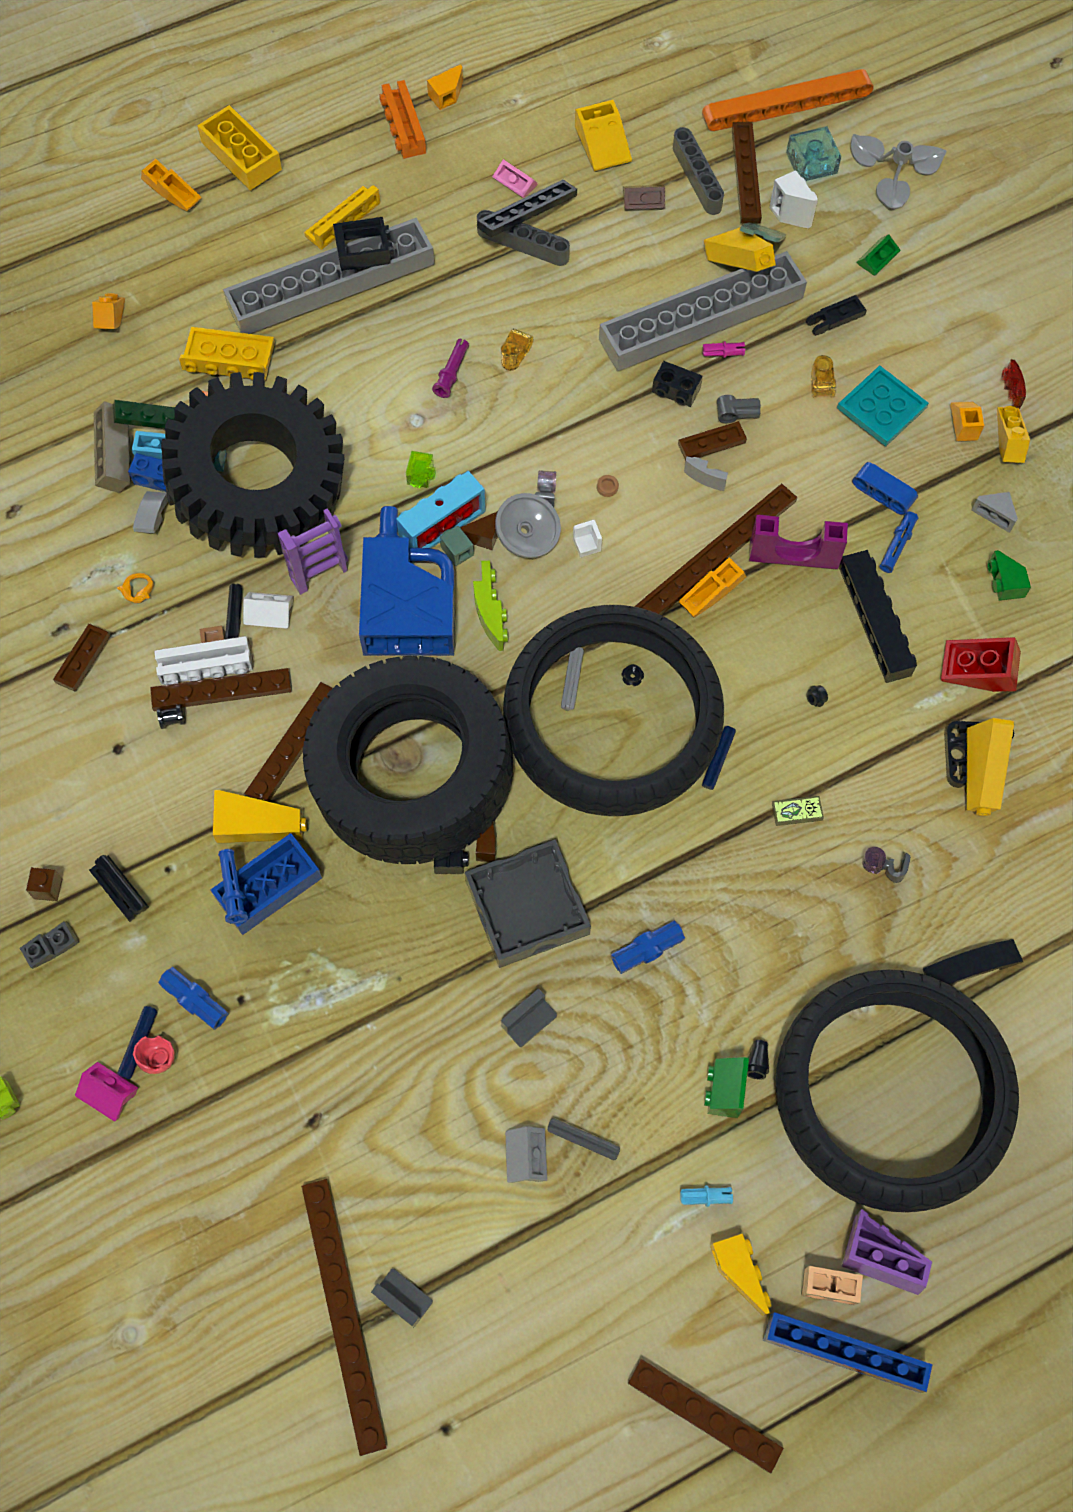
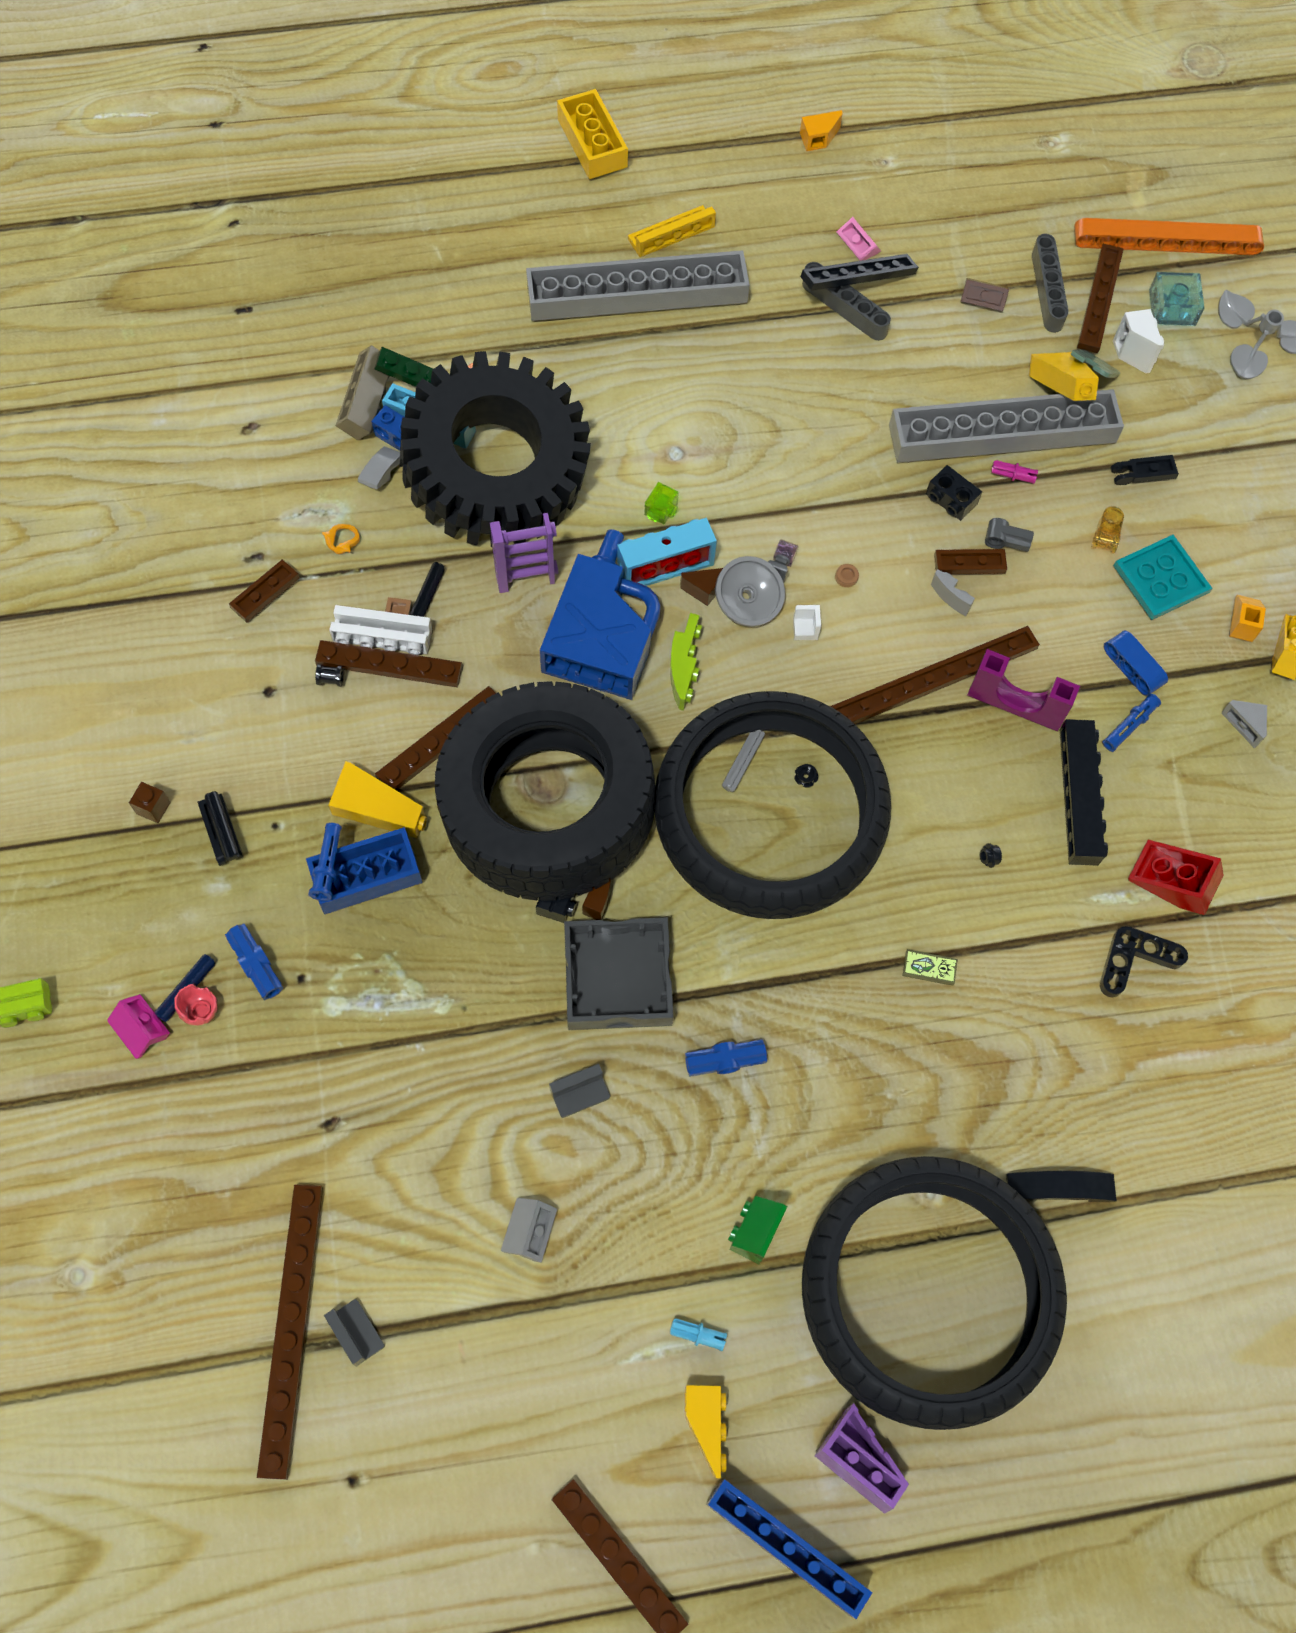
camera: 15 degrees right, 0 degrees up
(49, 946) = (134, 865): dark grey slope -> none
(108, 311) = (408, 259): light orange slope -> none
(169, 185) = (511, 152): light orange slope -> none
(226, 352) = (510, 331): yellow bracket -> none
(267, 609) = (461, 598): white panel -> none
(363, 229) = (684, 247): black window -> none
(403, 120) = (765, 151): orange brick -> none
(448, 375) = (722, 417): magenta pin -> none
(456, 545) = (671, 590): sand green brick -> none
(515, 349) = (799, 410): clear yellow piece -> none
(583, 1139) = (593, 1233): dark grey axle -> none
(602, 135) = (963, 220): yellow slope -> none
(713, 587) = (919, 711): light orange slope -> none
(719, 758) = (866, 887): dark blue axle -> none
(758, 1060) = (799, 1213): black cone -> none
(832, 1285) = (796, 1472): light nougat brick -> none
(875, 861) = (994, 1045): leg -> none
(879, 255) = (1211, 421): green slope -> none
(987, 764) = (1146, 982): yellow slope -> none
(1009, 577) = (1237, 794): green slope -> none

